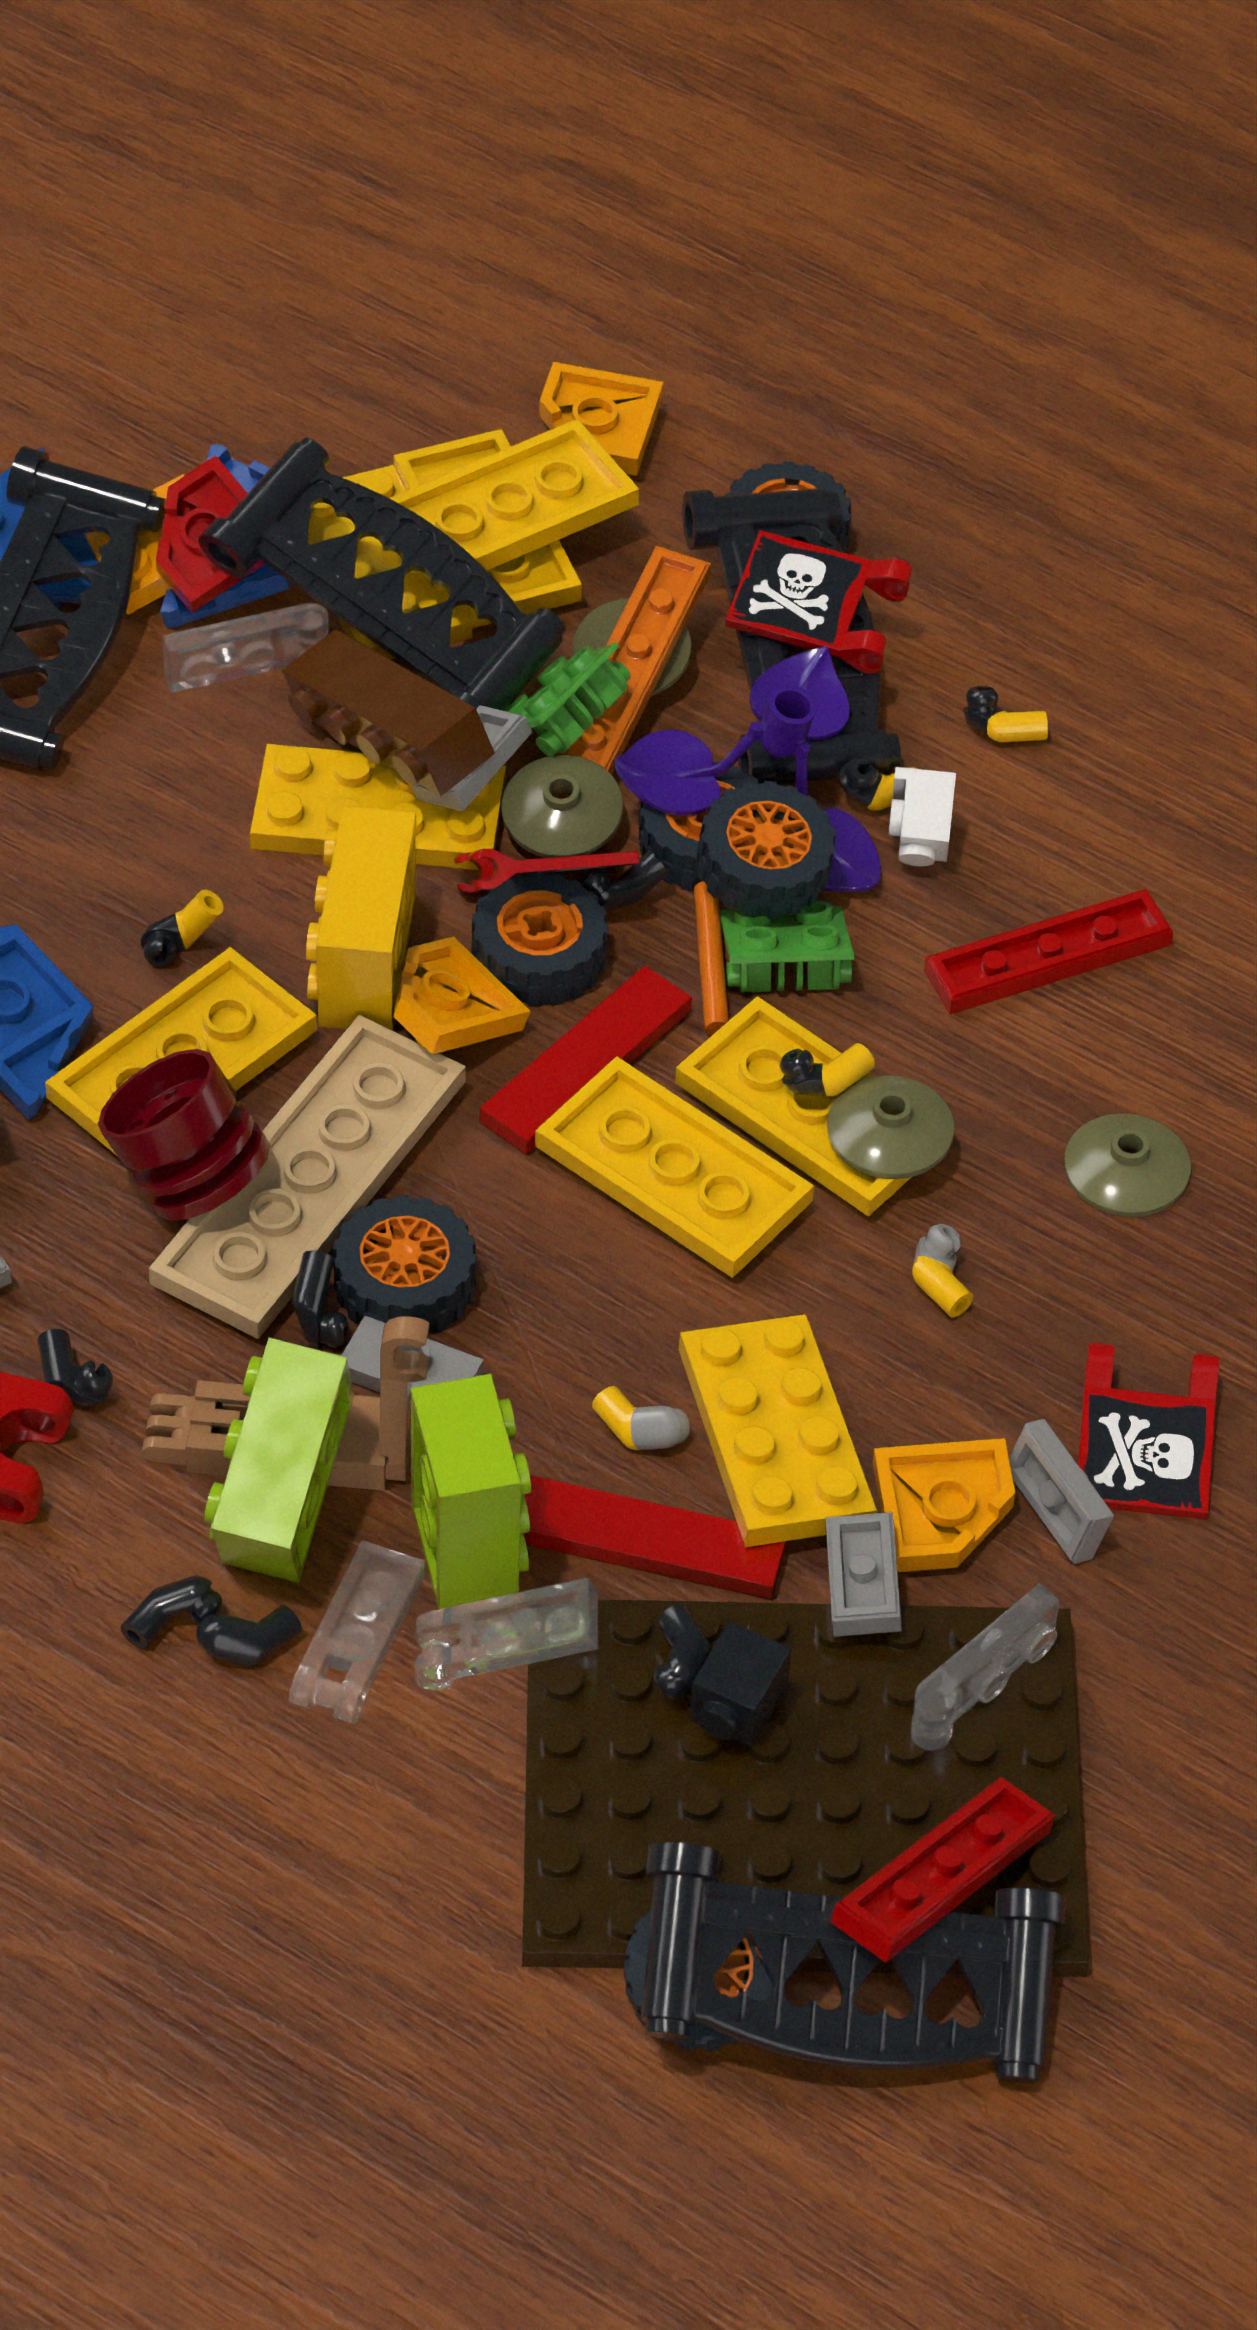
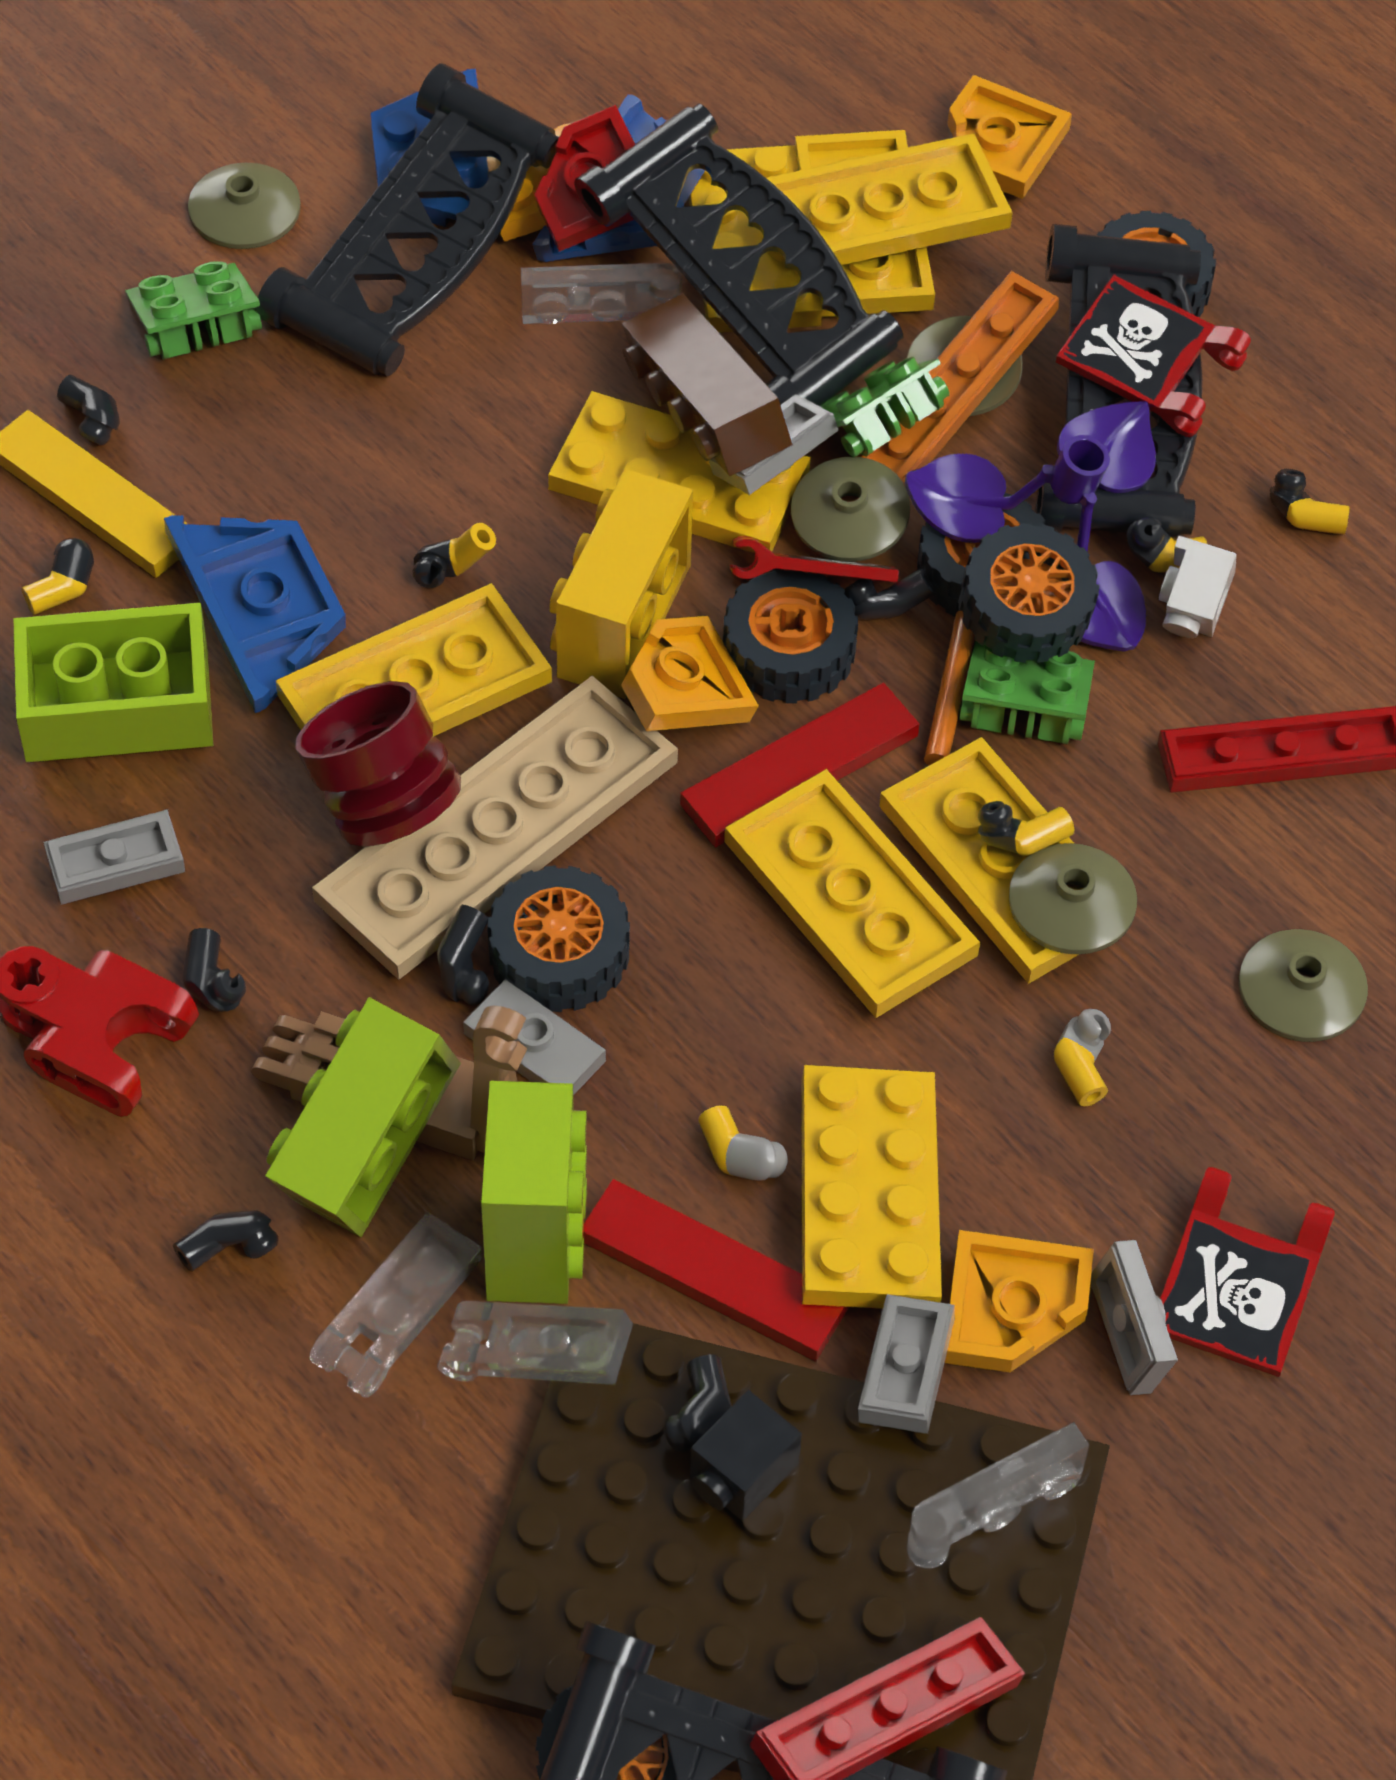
camera: 15 degrees right, 5 degrees up
(246, 1640) = (288, 1288): black arm -> none

